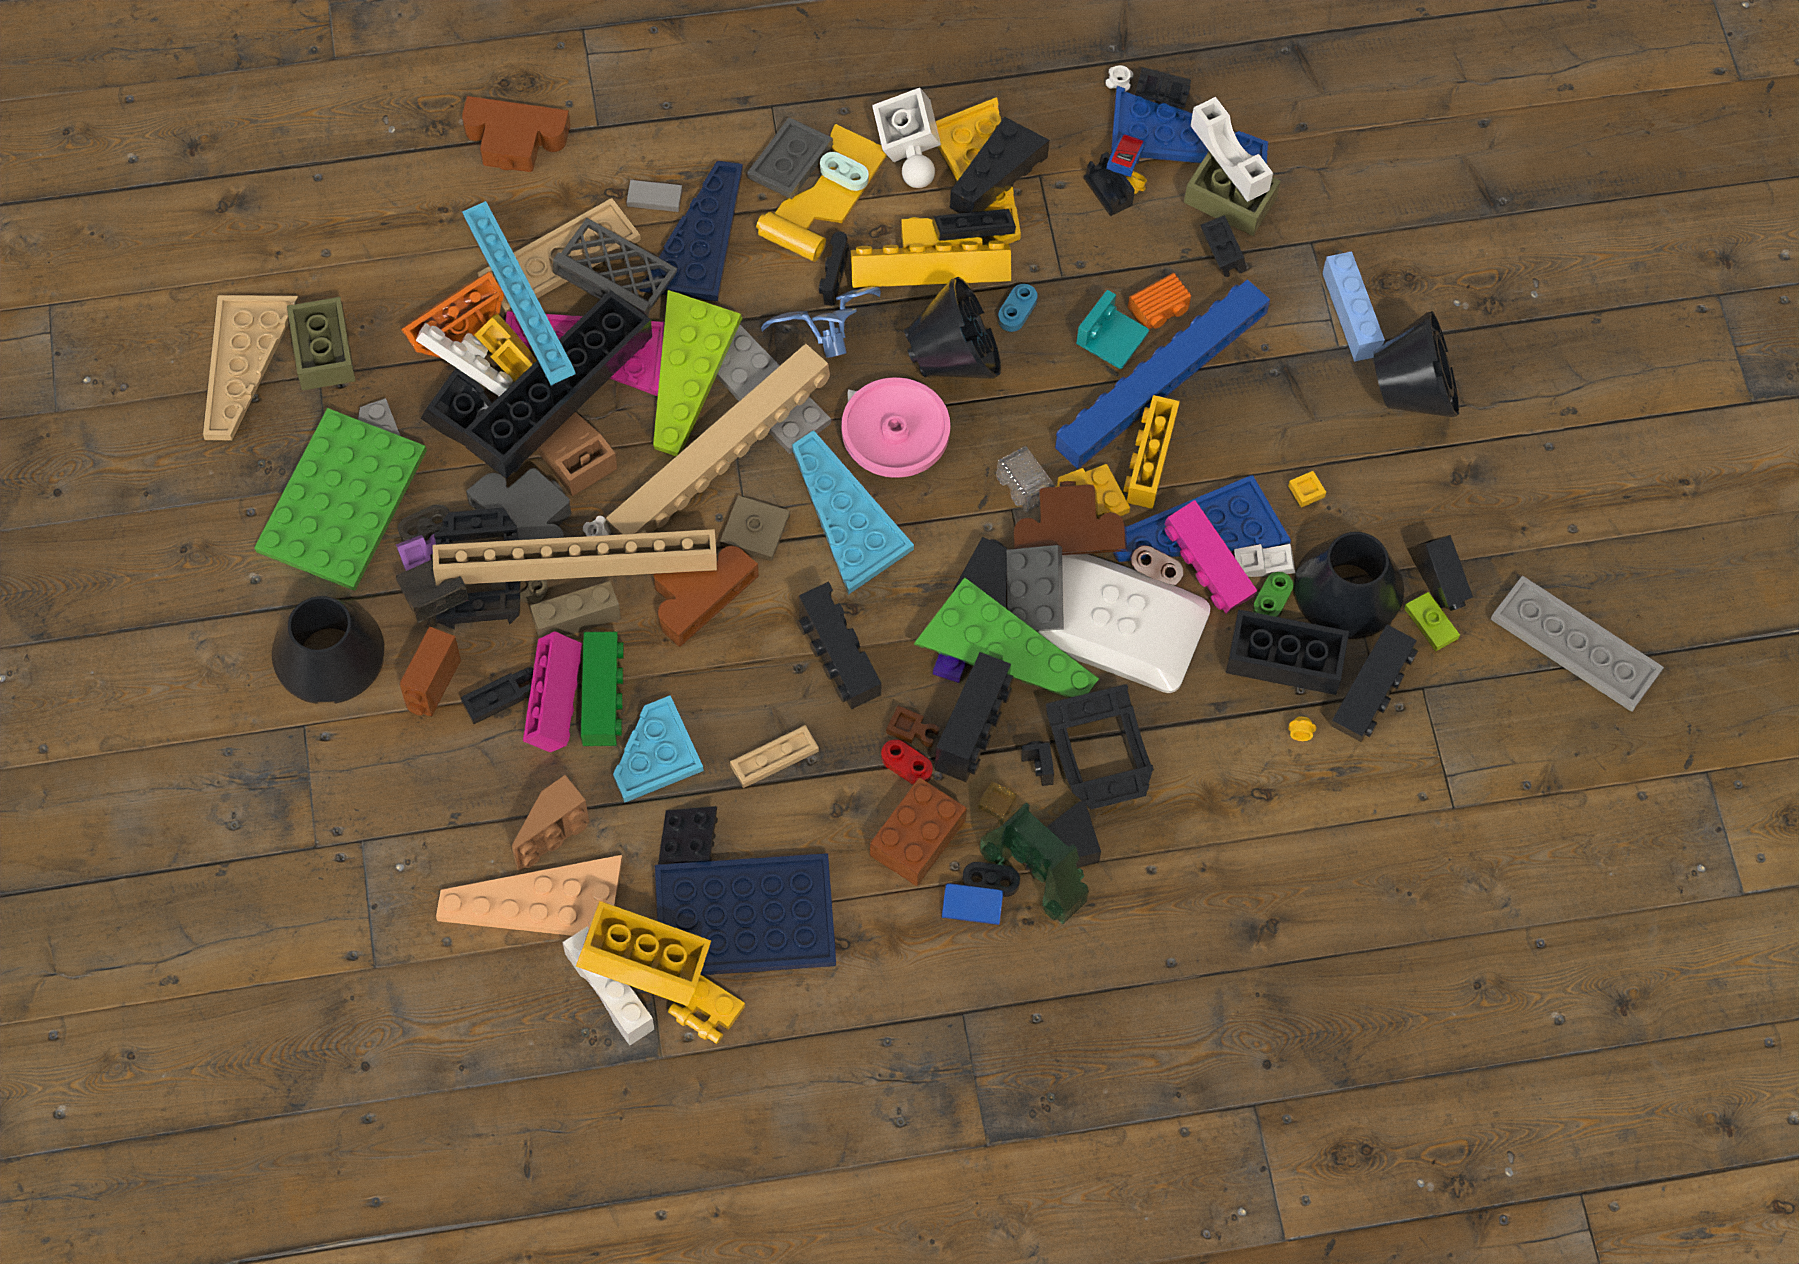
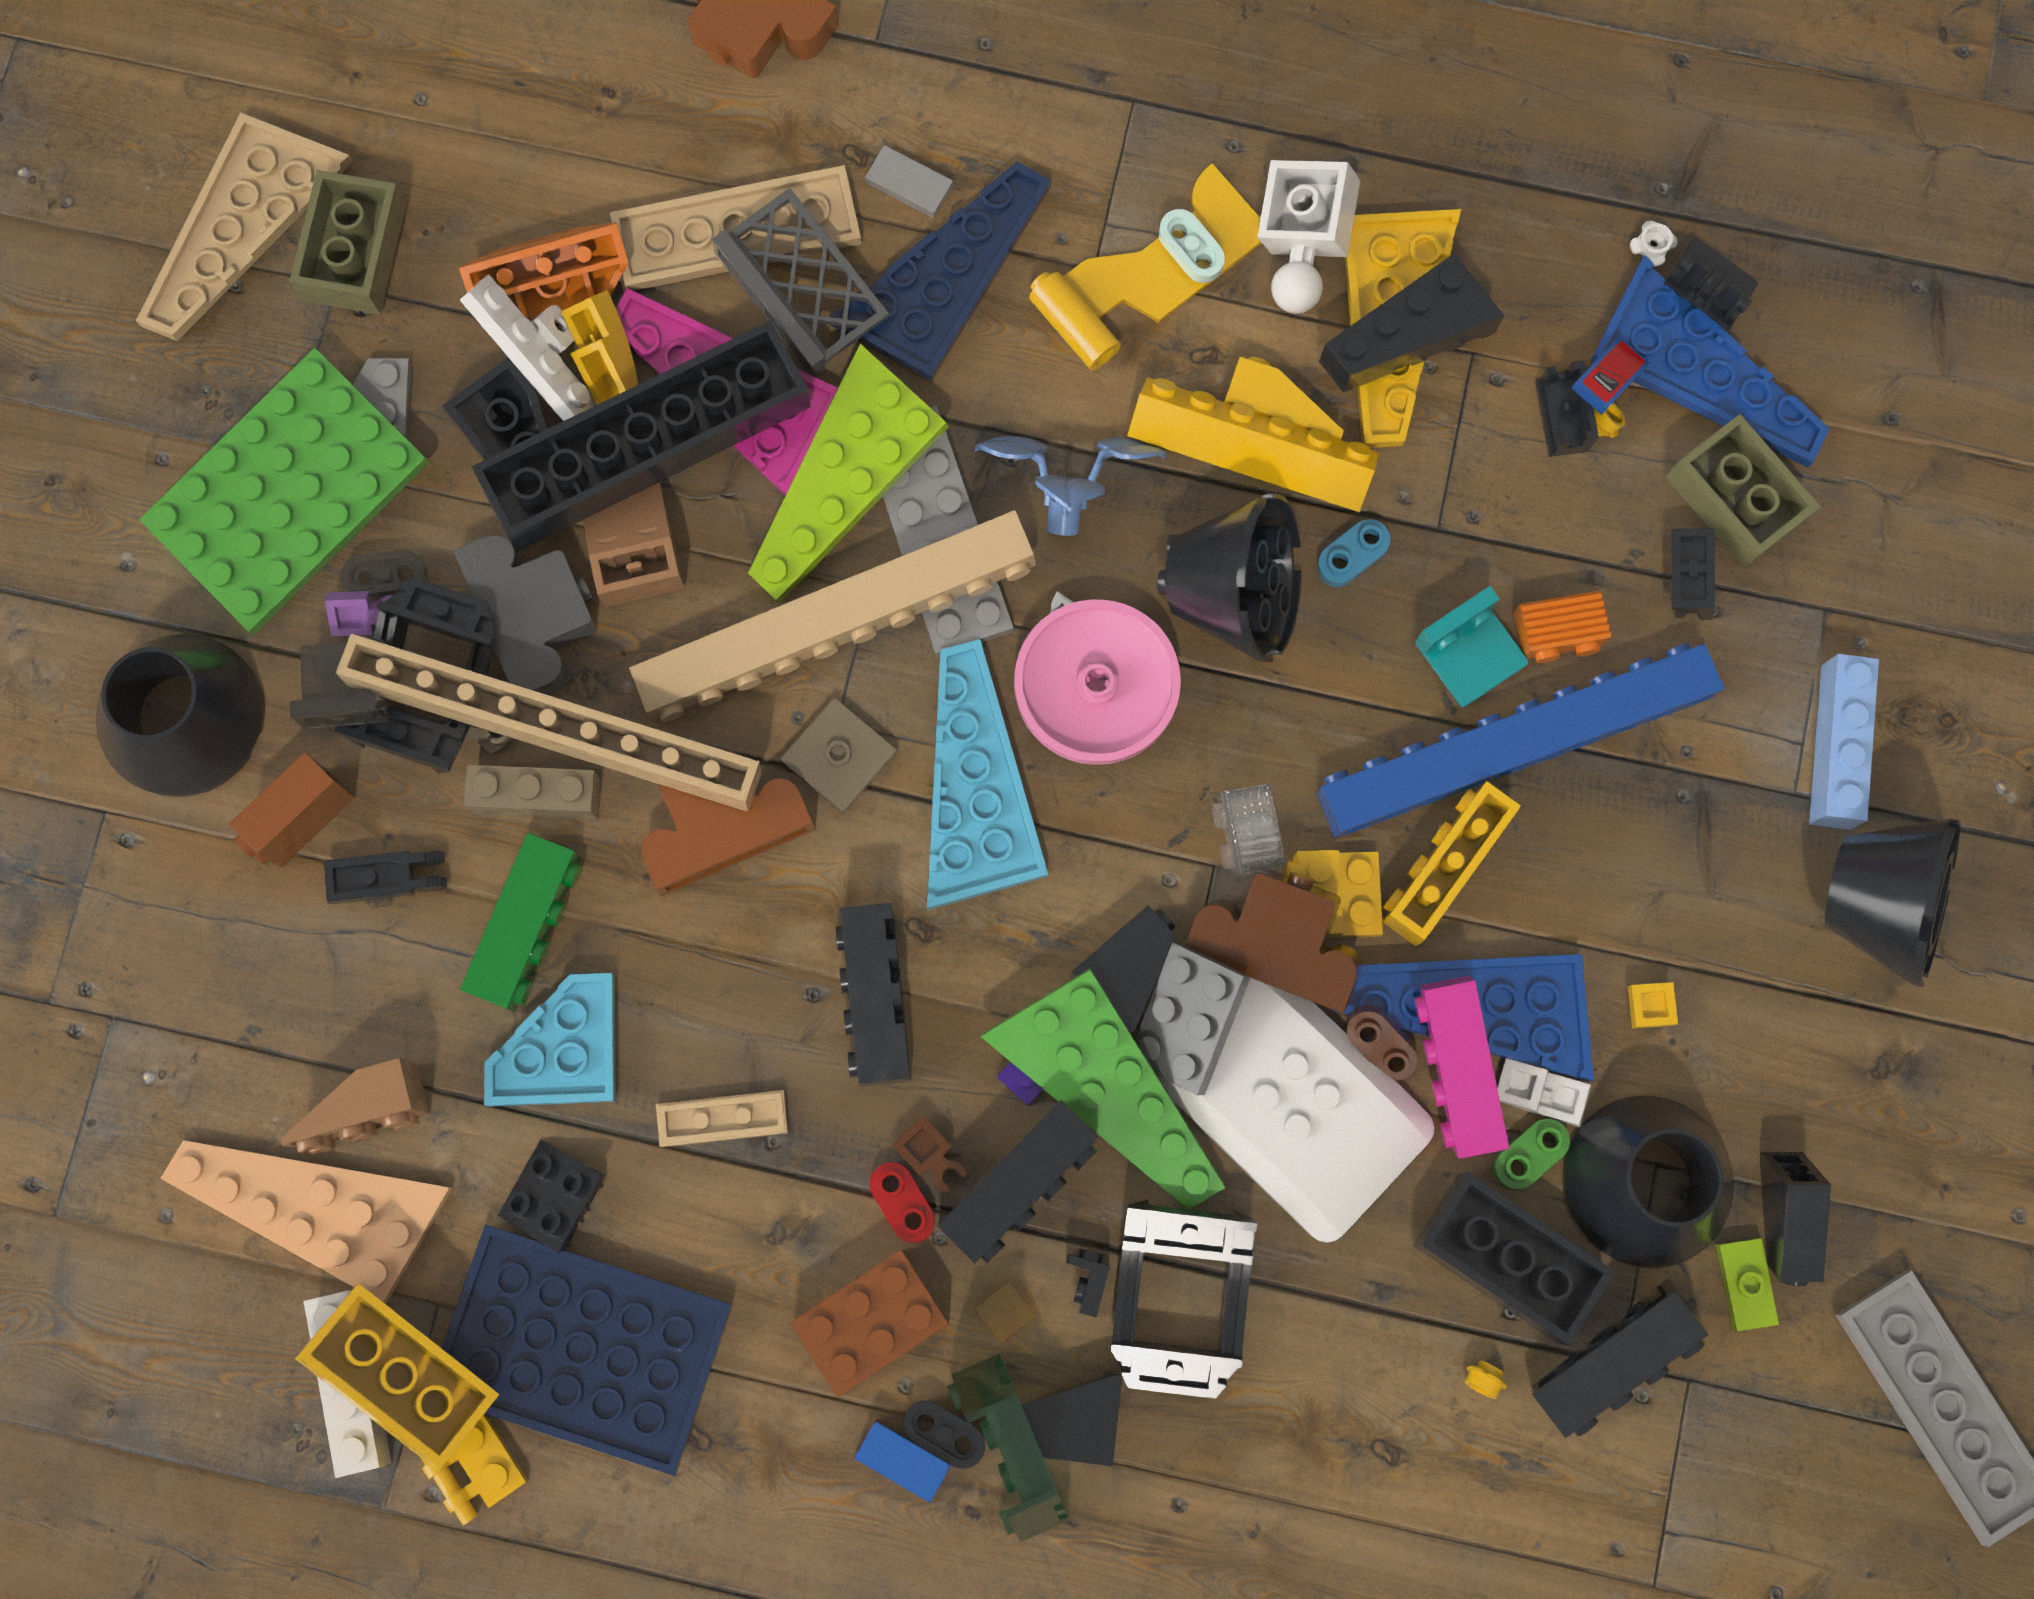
camera: 20 degrees right, 15 degrees up
(519, 293) = (642, 277): medium azure plate -> none
(552, 692) = (450, 905): dark pink brick -> none
(598, 526) = (614, 678): white plate -> none
(790, 158) = (1124, 195): dark grey plate -> none
(835, 268) = (1116, 394): black hinge -> none
(974, 224) = (1340, 405): black tile -> none
(1215, 130) = (1757, 394): white arch -> none

